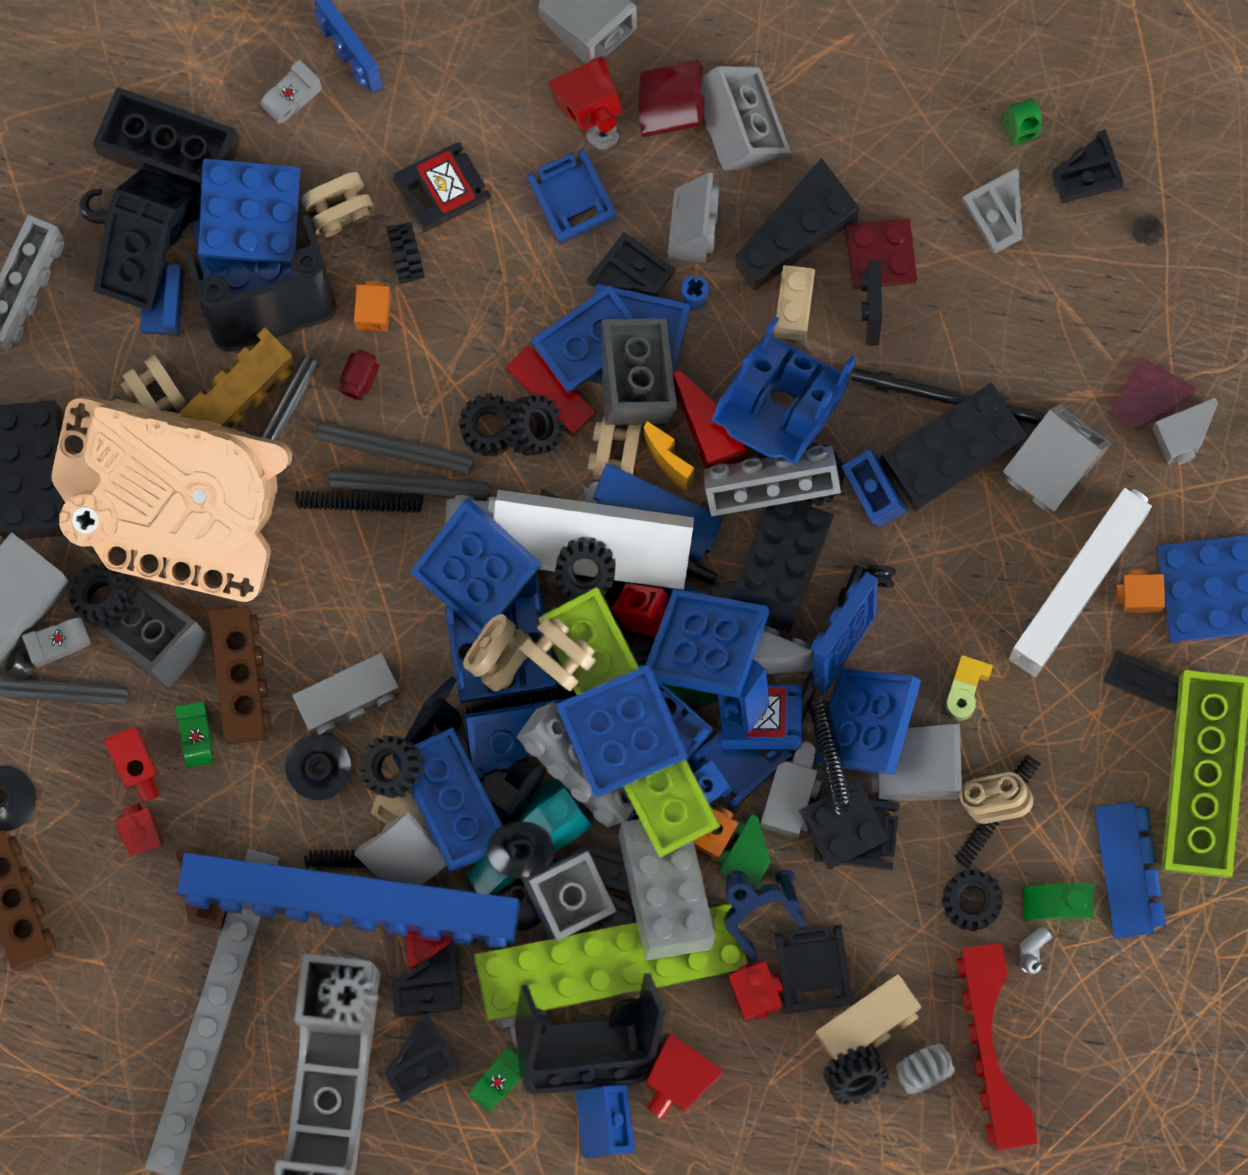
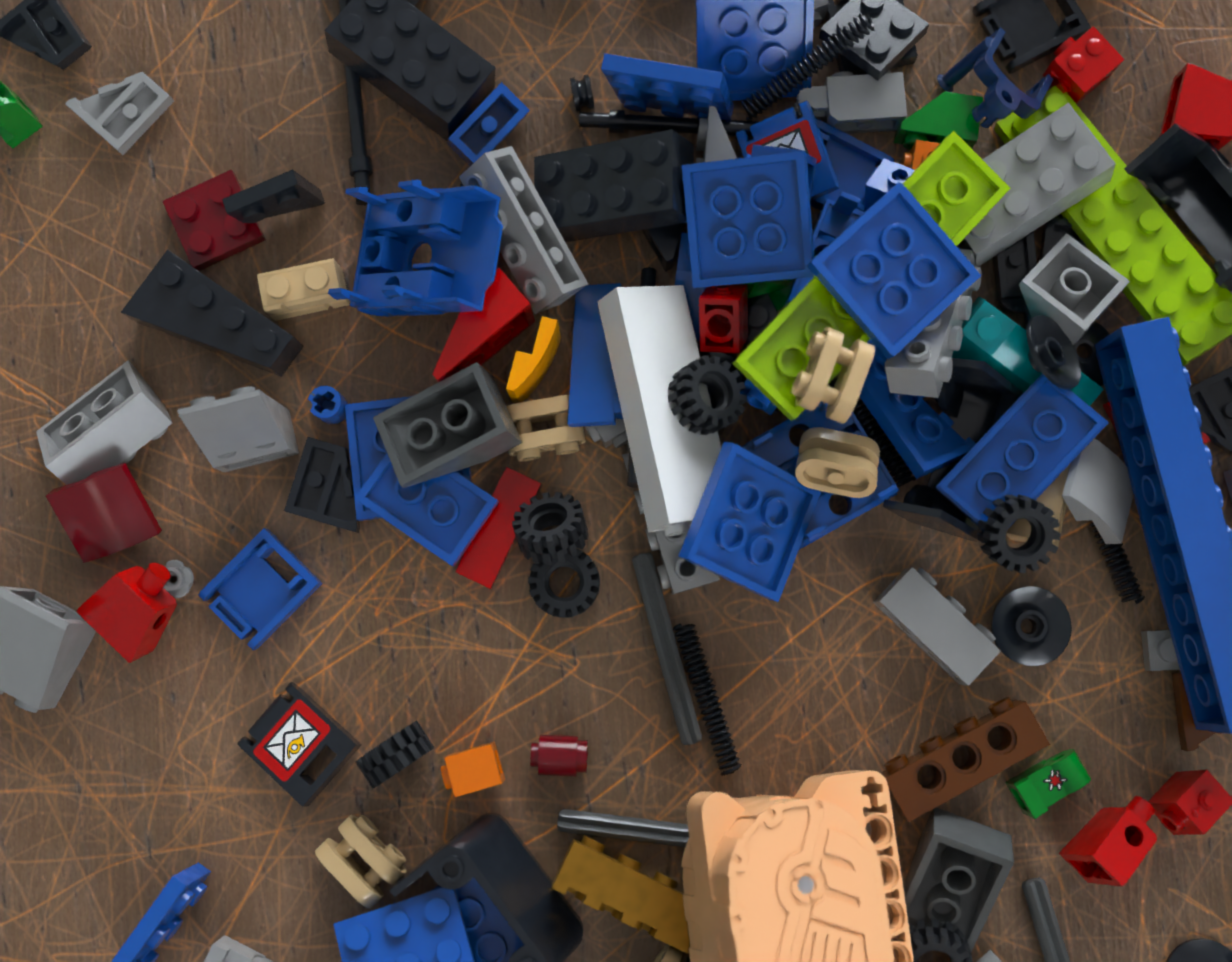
camera: 110 degrees left, 5 degrees up
(394, 448) = (629, 682): dark grey axle -> none

